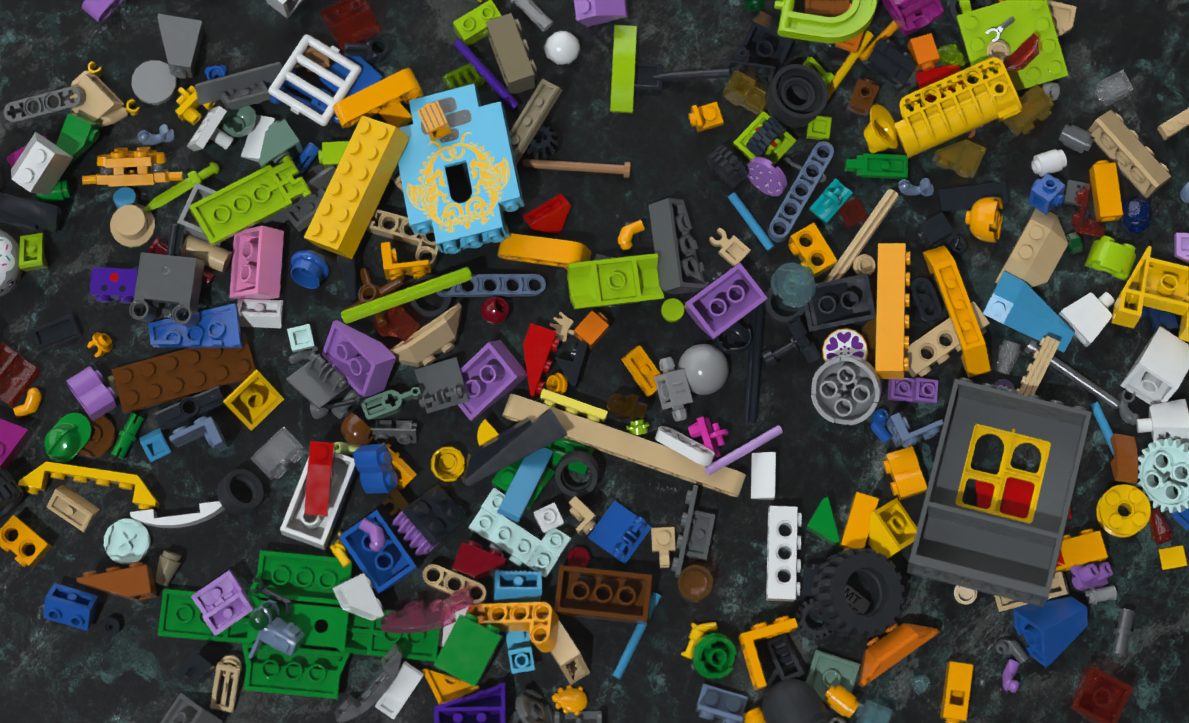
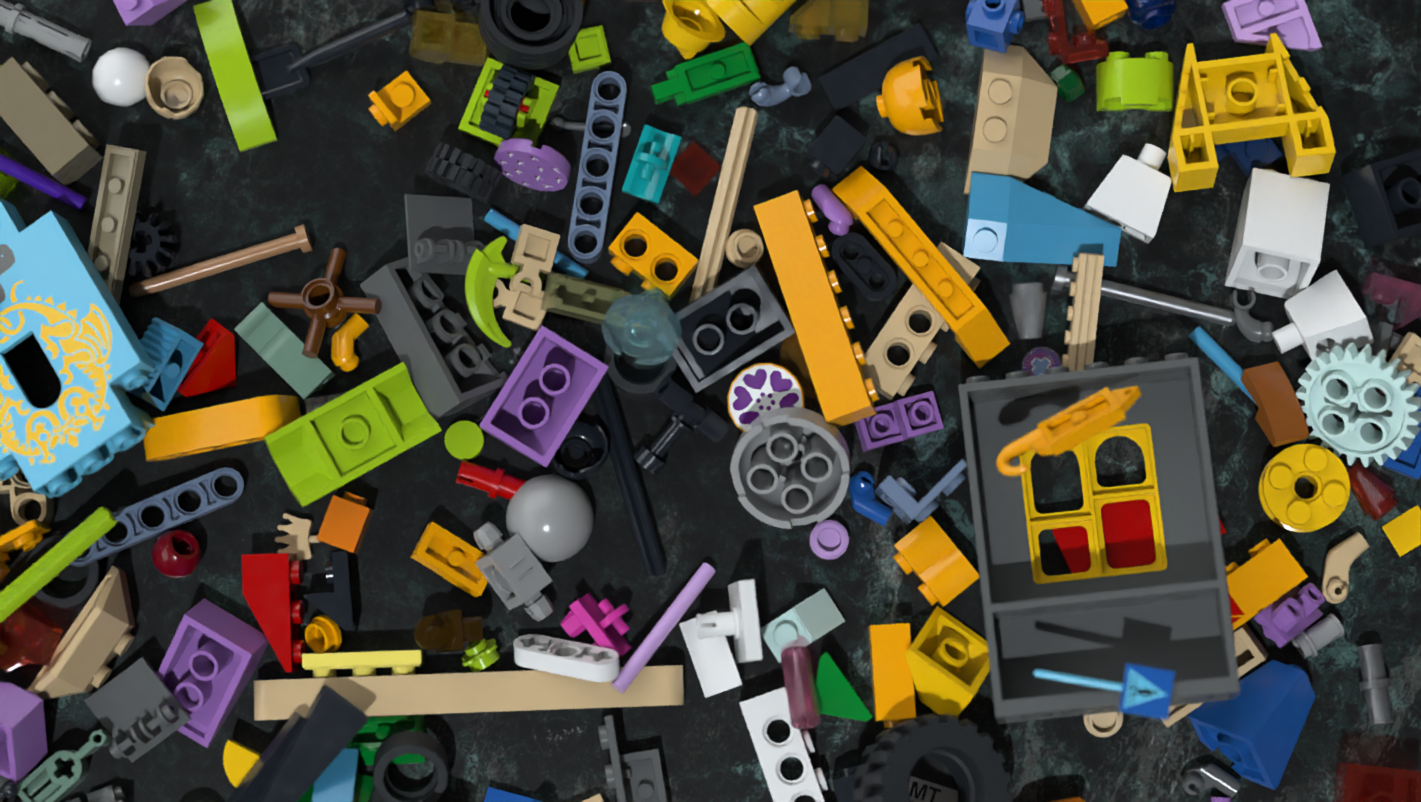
camera: 20 degrees left, 5 degrees up
(535, 203) = (172, 355): none -> dark azure brick
(588, 63) = (173, 87): none -> tan hair
(594, 226) = (284, 352): none -> sand green piece
(625, 207) = (324, 303): none -> reddish brown bar
(678, 336) = (488, 480): none -> red pin
(703, 196) = (440, 234): none -> dark grey hinge
(716, 225) = (480, 281): none -> lime piece
(749, 224) = (535, 254): none -> tan plate
(763, 256) = (579, 297): none -> olive hinge
(786, 463) = (740, 622): none -> white tile
(806, 510) = (800, 687): none -> clear pink piece
(818, 479) = (802, 624): none -> light aqua slope
(850, 439) = (829, 539): none -> lavender tile
(922, 265) = (833, 209): none -> medium lavender arm
(994, 577) = (1144, 689): none -> piece
(1007, 422) = (1070, 427): none -> light orange plate
(1126, 560) = (1337, 566): none -> tan arm

